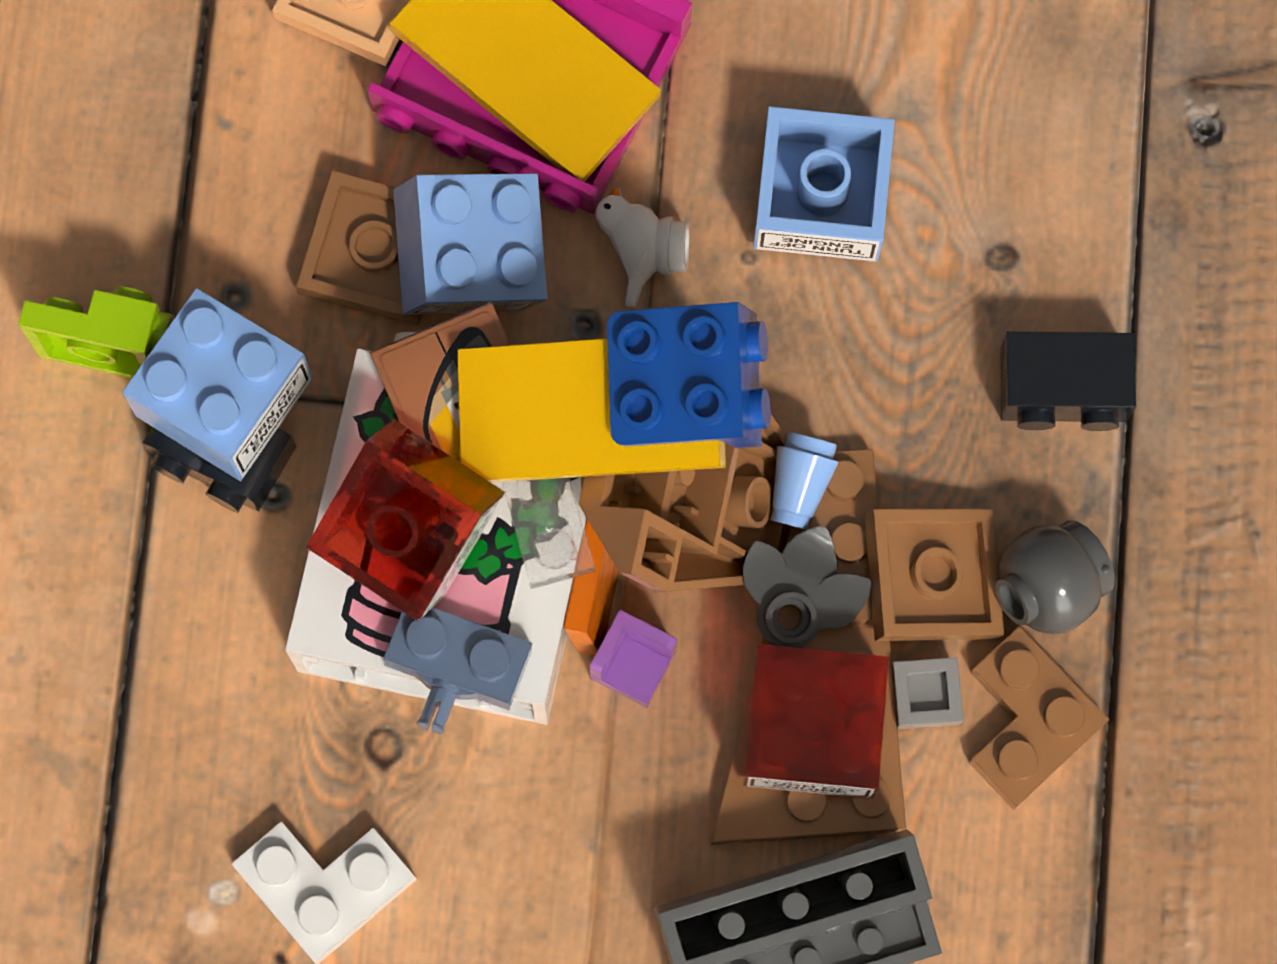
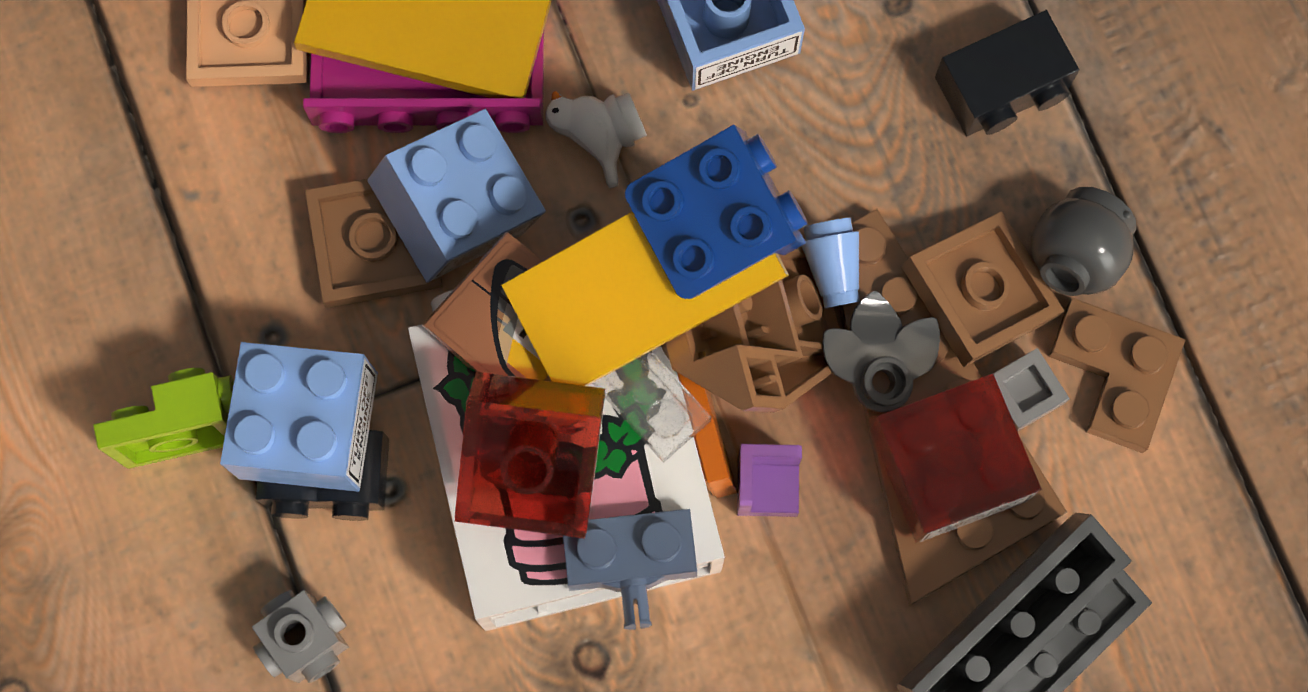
camera: 25 degrees left, 0 degrees up
(133, 609) = (322, 640): none -> light grey brick

